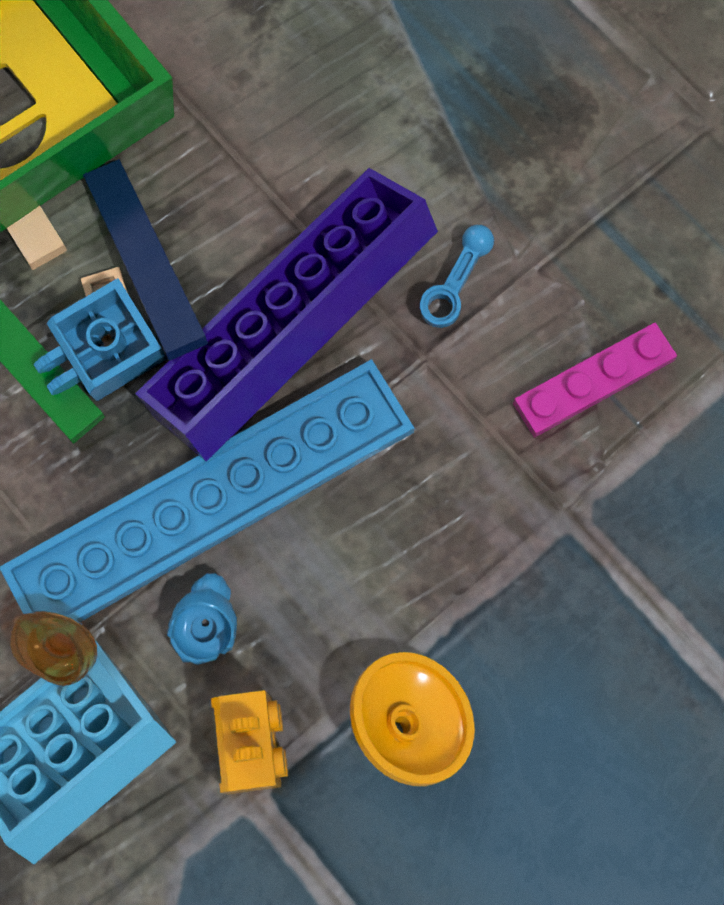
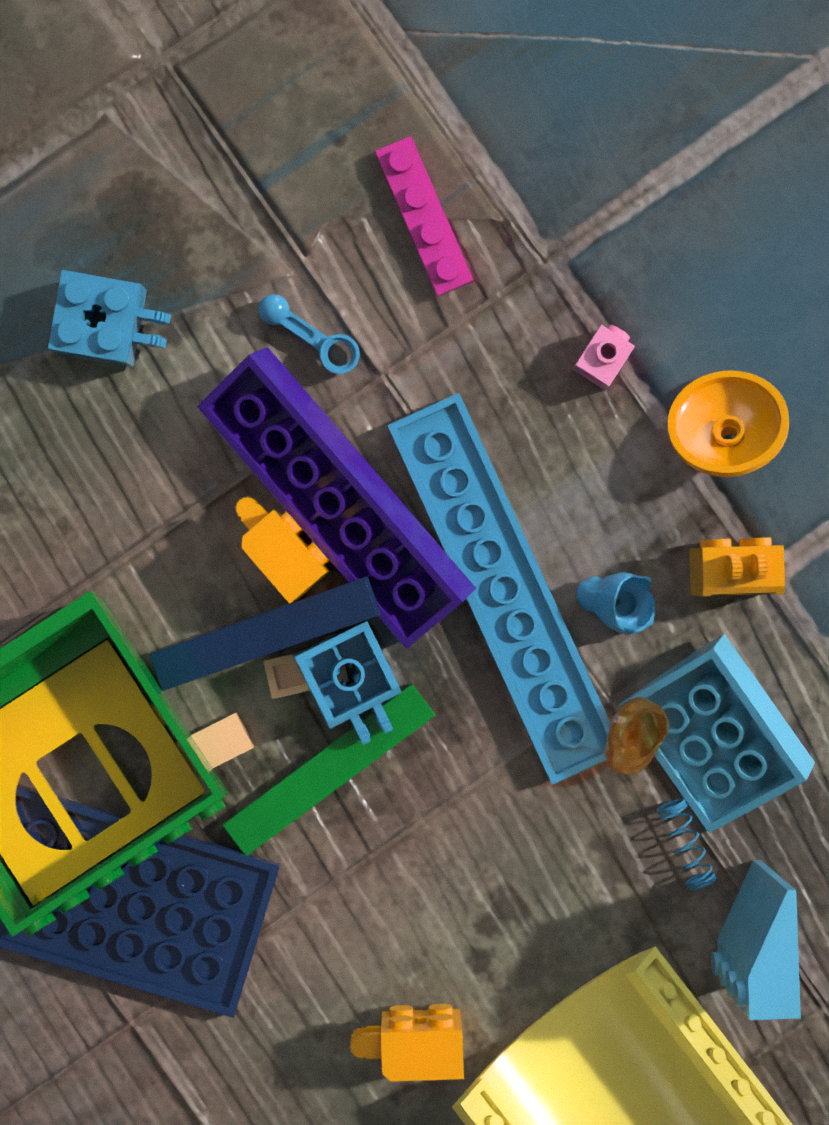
camera: 90 degrees left, 15 degrees up
(227, 259) = (280, 551): none -> light orange hinge
(446, 80) = (112, 341): none -> dark azure hinge
(472, 577) = (604, 356): none -> bright pink brick

